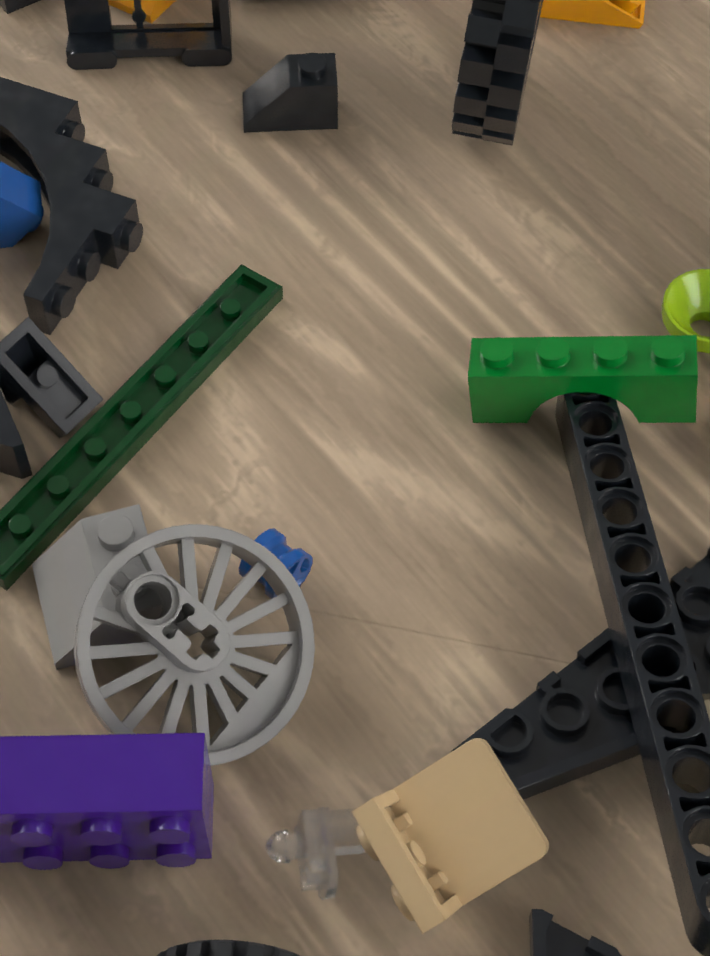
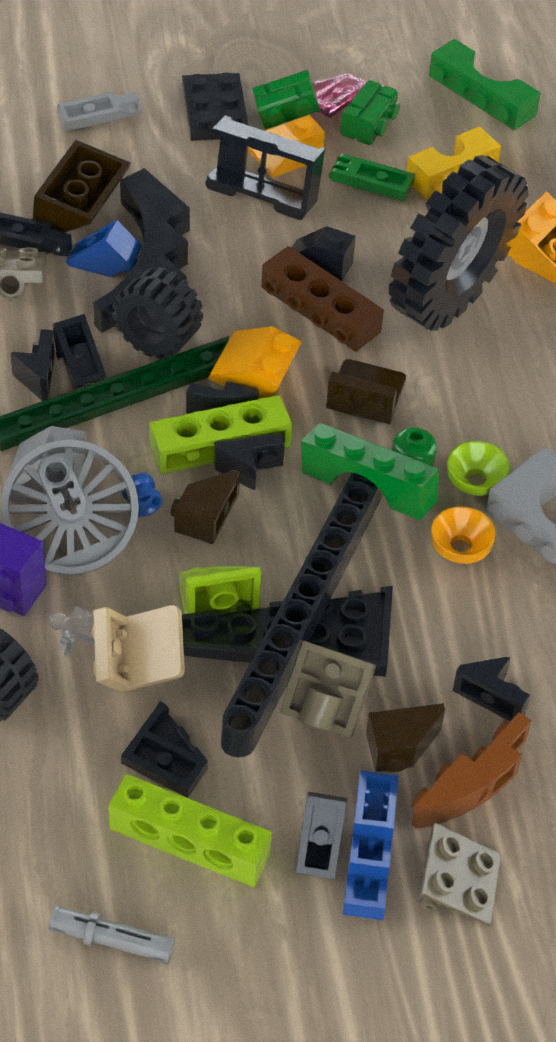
camera: 25 degrees right, 5 degrees down
(140, 240) = (157, 312): none -> black tyre
(284, 374) = (205, 398): none -> black slope
(314, 287) = (256, 359): none -> light orange slope
(326, 417) = (190, 438): none -> lime brick
(335, 158) = (322, 298): none -> reddish brown brick
(382, 541) = (206, 506): none -> dark brown slope
(389, 437) = (248, 455): none -> black slope
(485, 264) = (365, 390): none -> dark brown bracket
(495, 669) = (219, 588): none -> lime slope
(613, 313) = (416, 444): none -> green head

